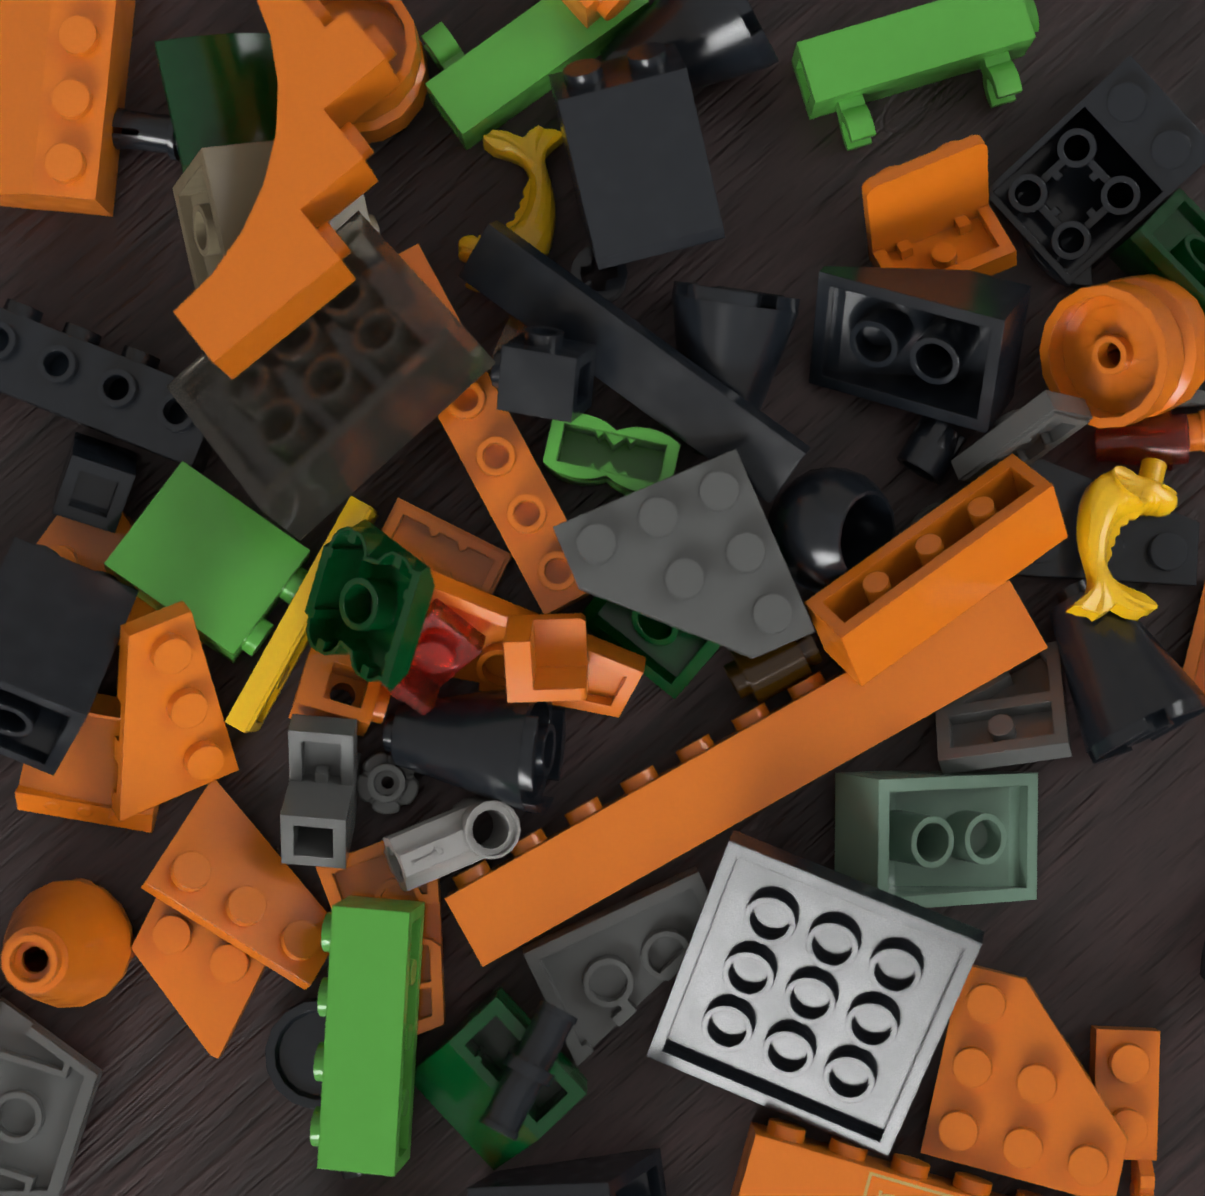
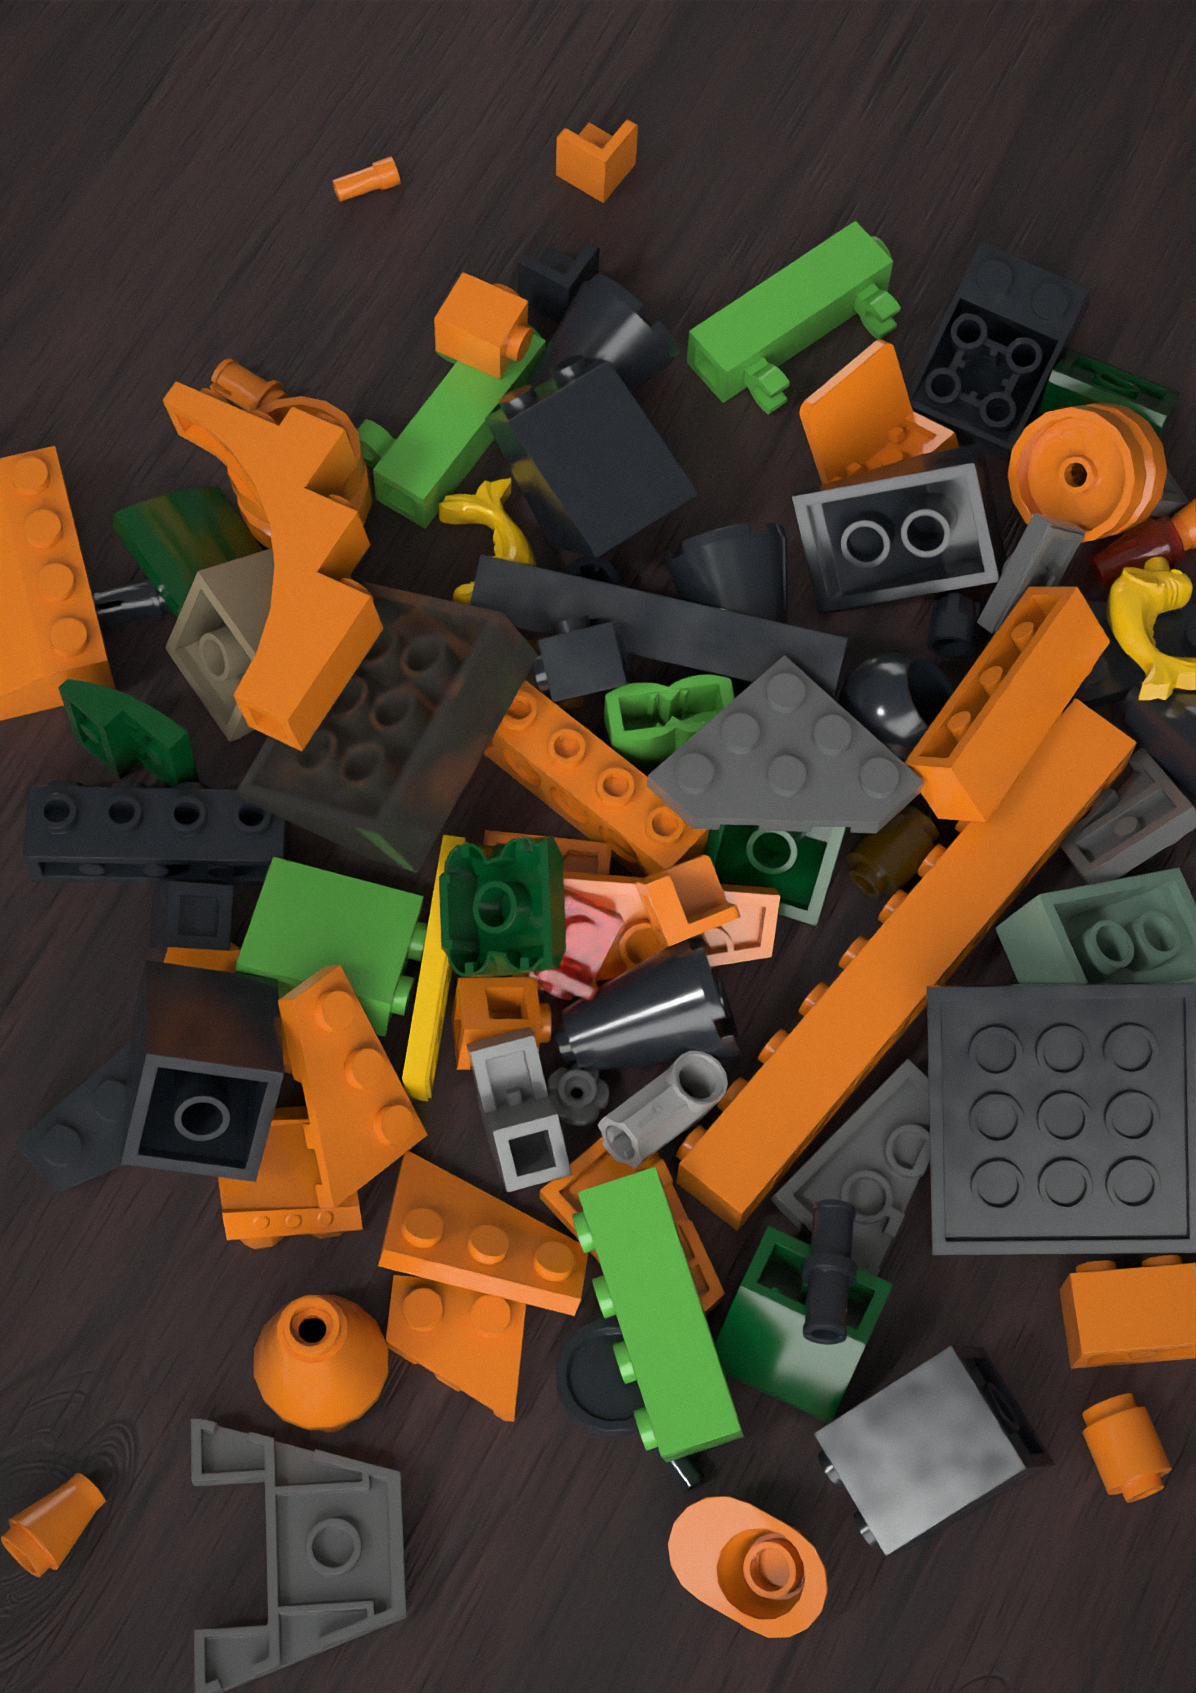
camera: 25 degrees left, 20 degrees down
(91, 285) = (127, 731): none -> dark green slope

